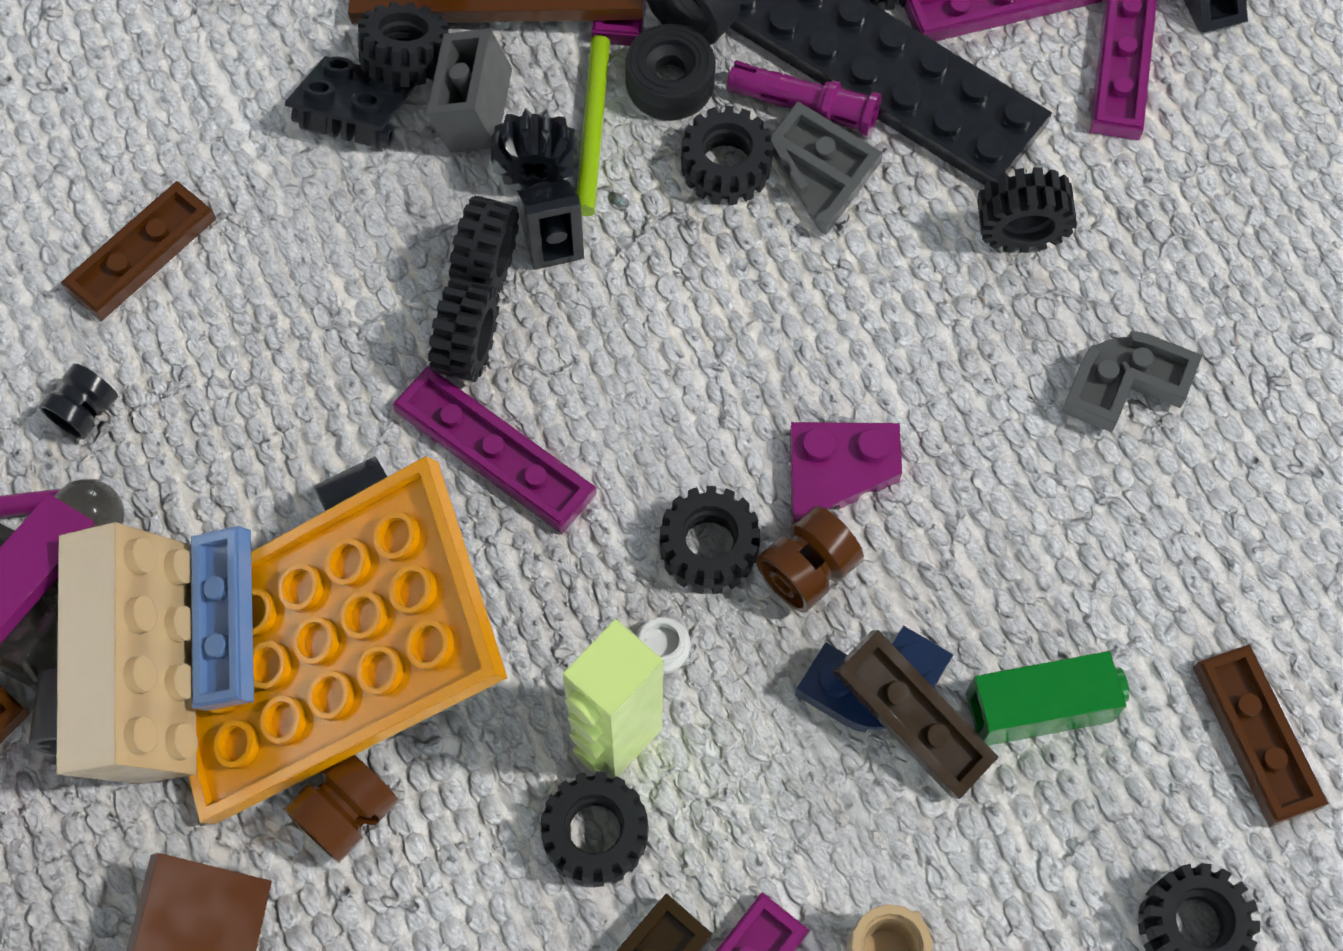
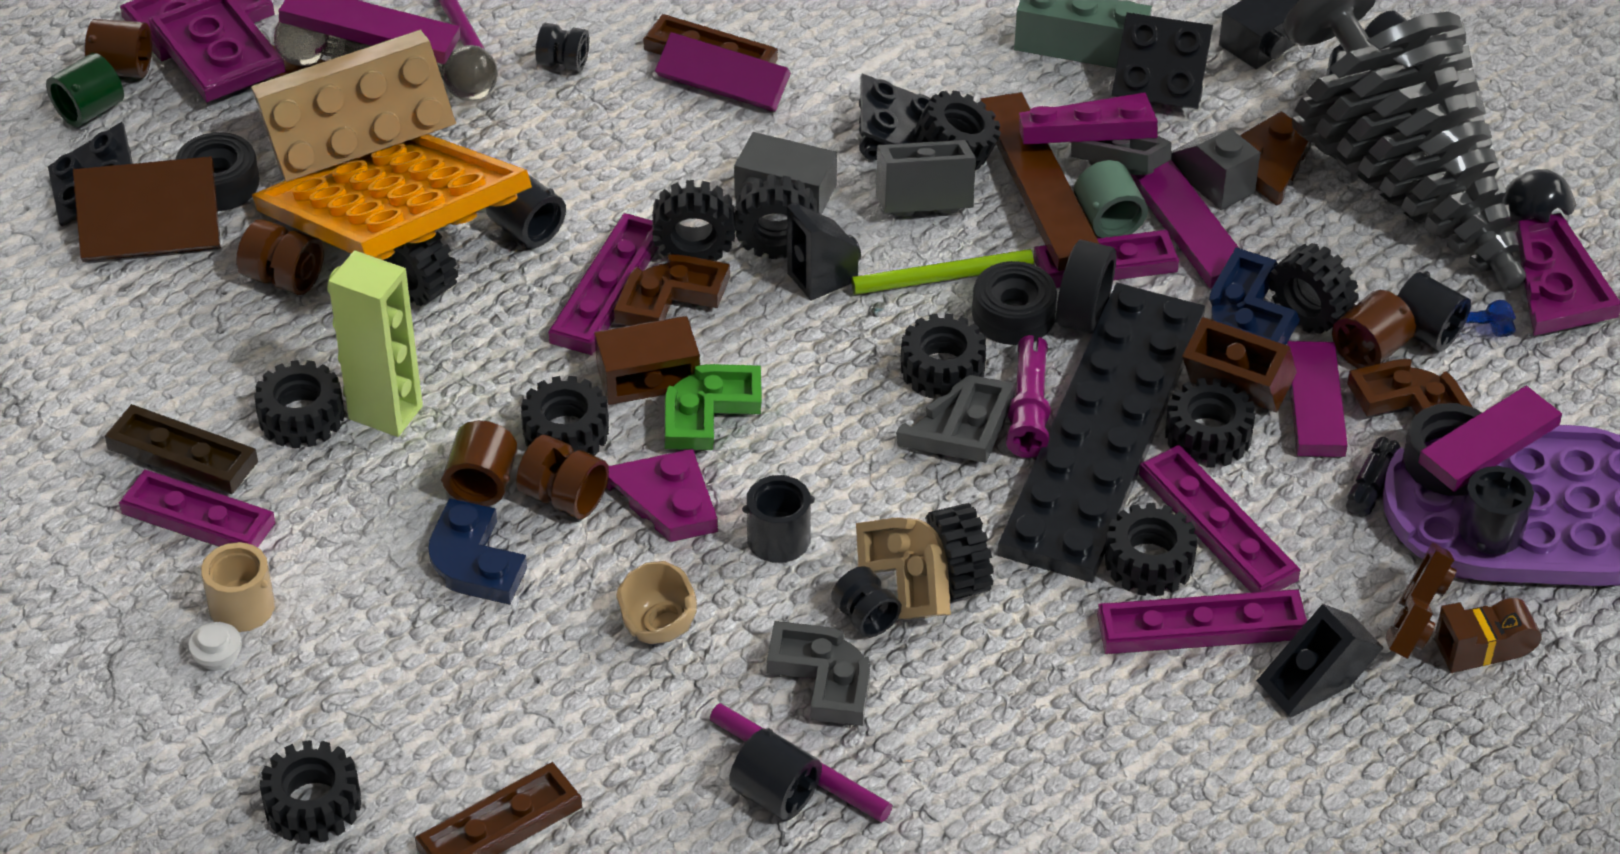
camera: 75 degrees right, 20 degrees down
(108, 837) = (229, 154): none -> black tyre
(195, 244) = (723, 72): none -> magenta tile
(221, 619) = (397, 145): medium blue tile -> none
(402, 225) = (779, 157): none -> dark grey brick
(525, 391) = (682, 279): none -> reddish brown plate
(533, 149) = (883, 226): black gear -> none
(645, 434) = (645, 358): none -> reddish brown brick
(666, 639) = (464, 407): white plate -> none
(722, 403) = (709, 391): none -> bright green plate
(765, 641) = (480, 463): none -> reddish brown piece
(915, 714) = (439, 562): dark brown plate -> none
(926, 362) = (778, 518): none -> black piece
(1020, 506) = (657, 602): none -> tan hair
(1023, 248) = (916, 556): none -> tan plate
(1042, 36) = (1145, 570): none -> black tyre
(1047, 698) = (483, 655): green brick -> none
(1053, 314) = (870, 606): none -> black wheel
(1230, 432) = (829, 780): none -> magenta bar
(1269, 451) = (775, 774): none -> black piece

